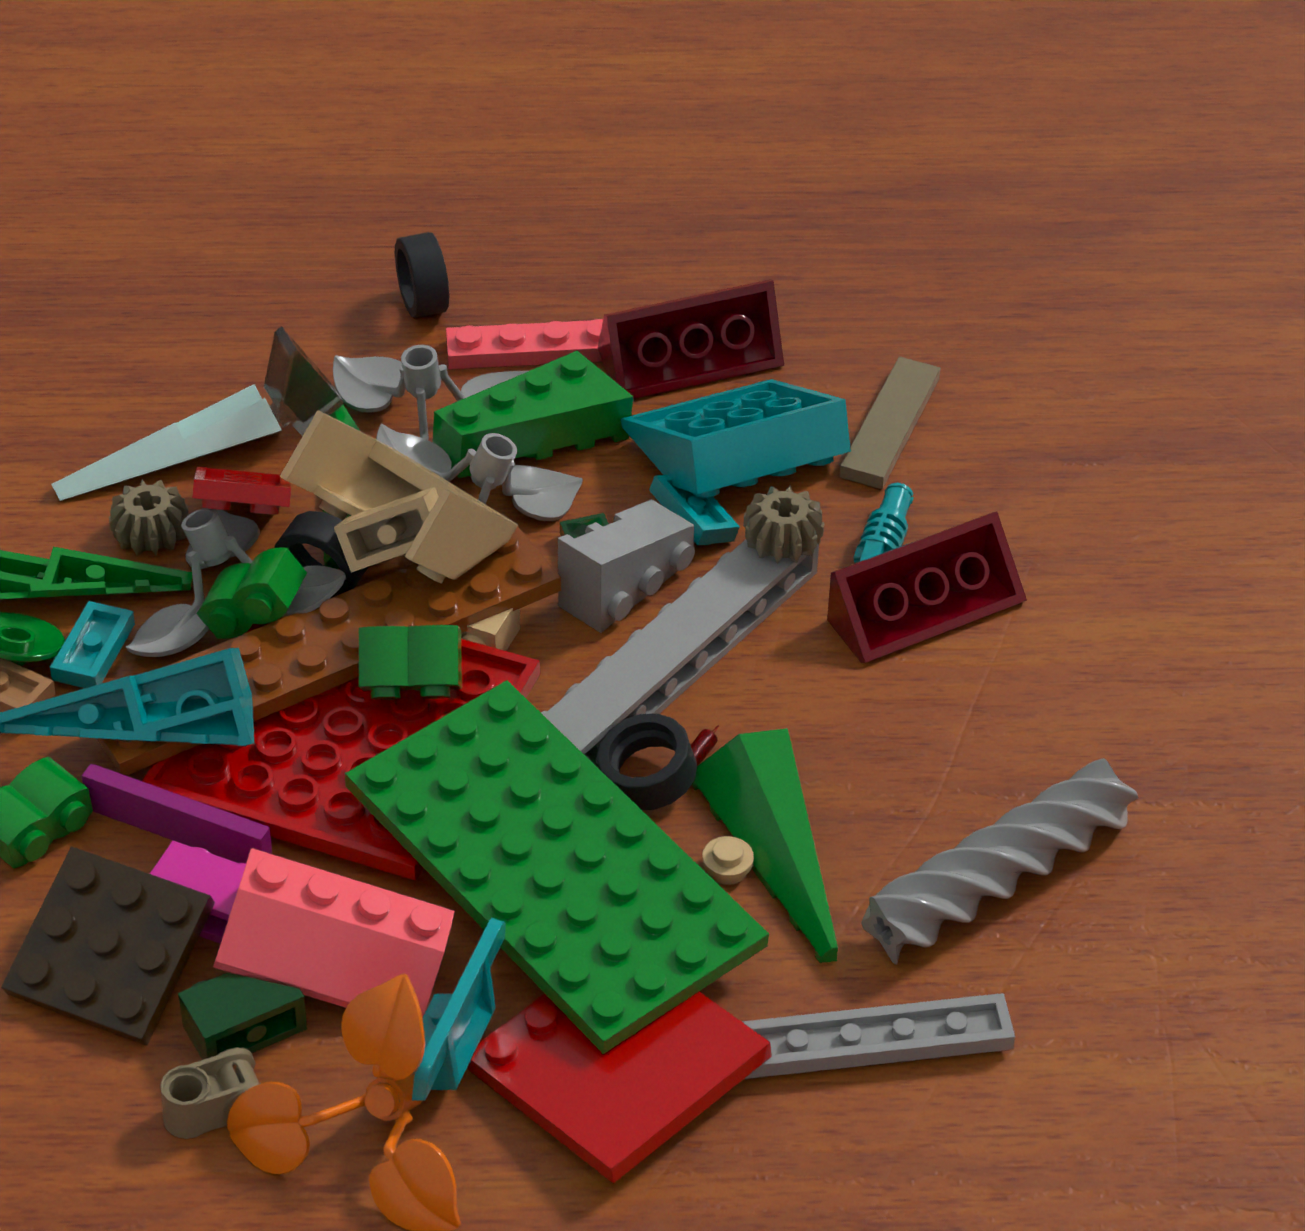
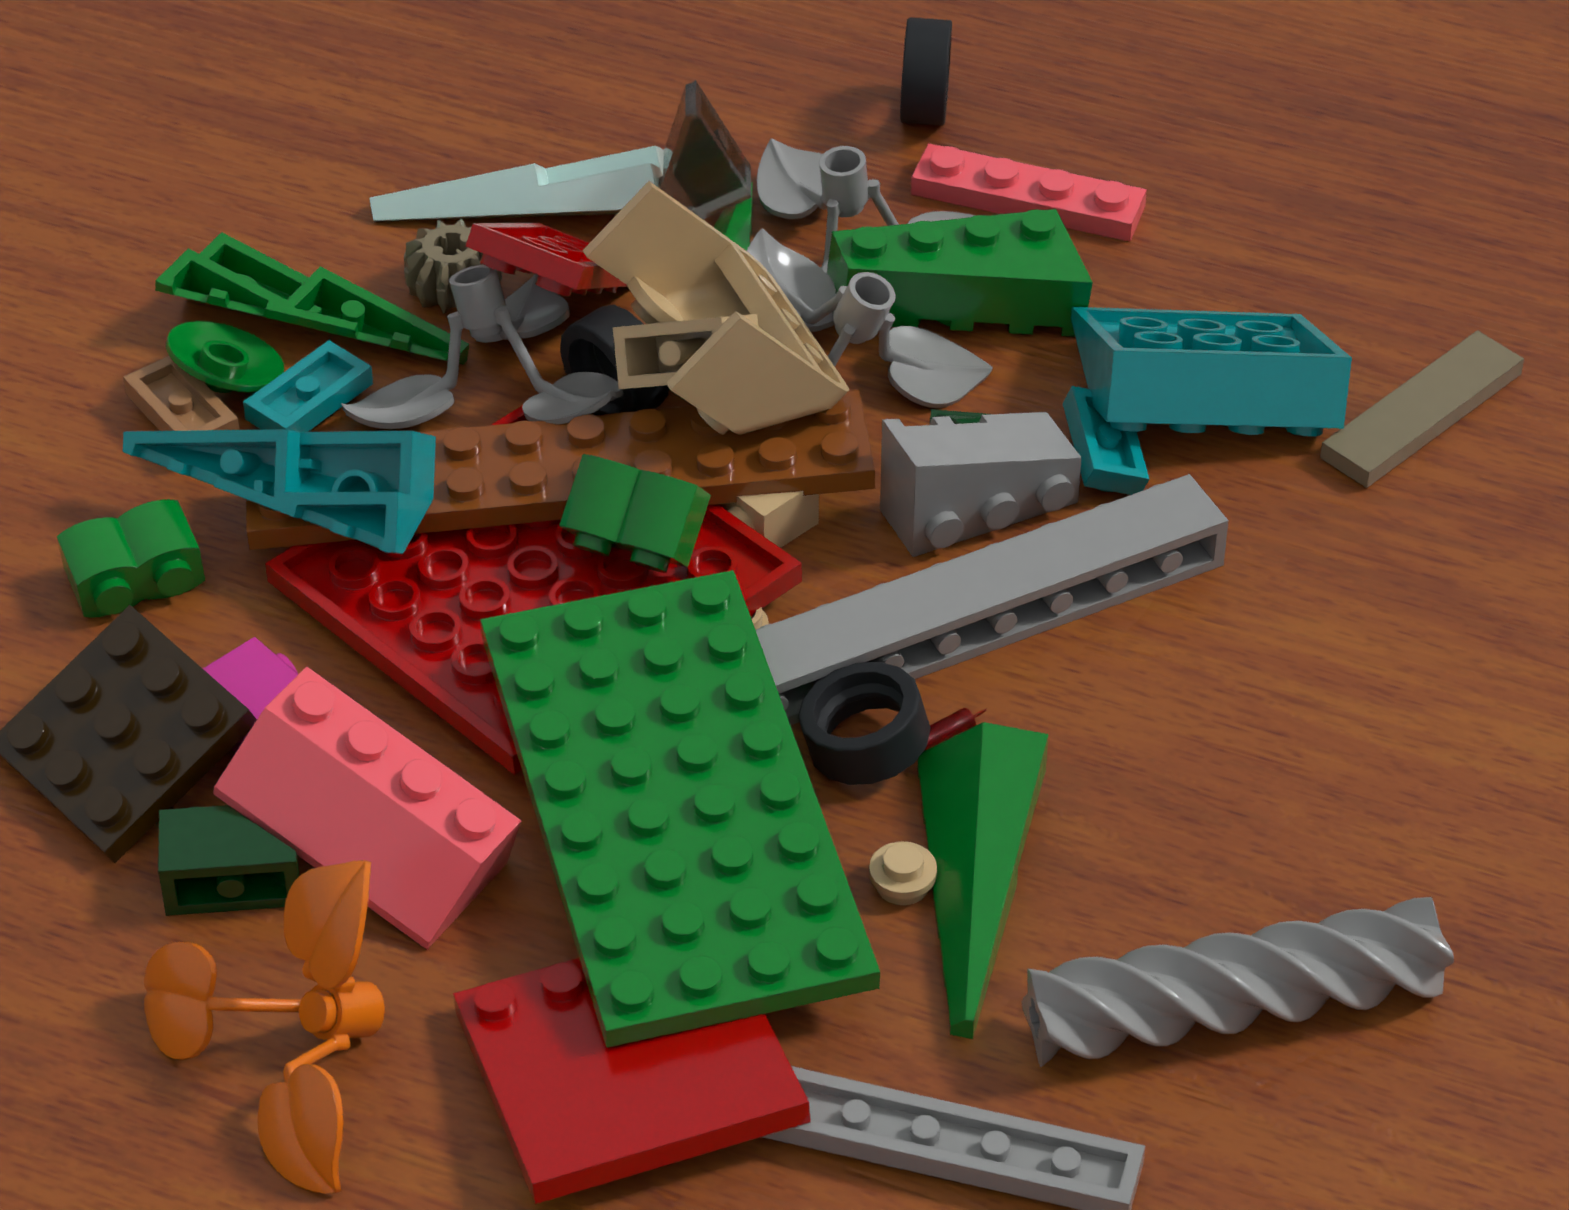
camera: 25 degrees right, 0 degrees up
(174, 815) = (286, 614): magenta tile -> none
(201, 1093) = (125, 930): dark tan piece -> none
(252, 593) = (502, 382): green brick -> none
(459, 1019) = (451, 947): teal plate -> none
(692, 339) = (1215, 237): dark red slope -> none
(783, 524) = (1182, 486): dark tan gear -> none
(887, 524) = (1326, 544): teal hinge -> none
(924, 588) = (1339, 620): dark red slope -> none

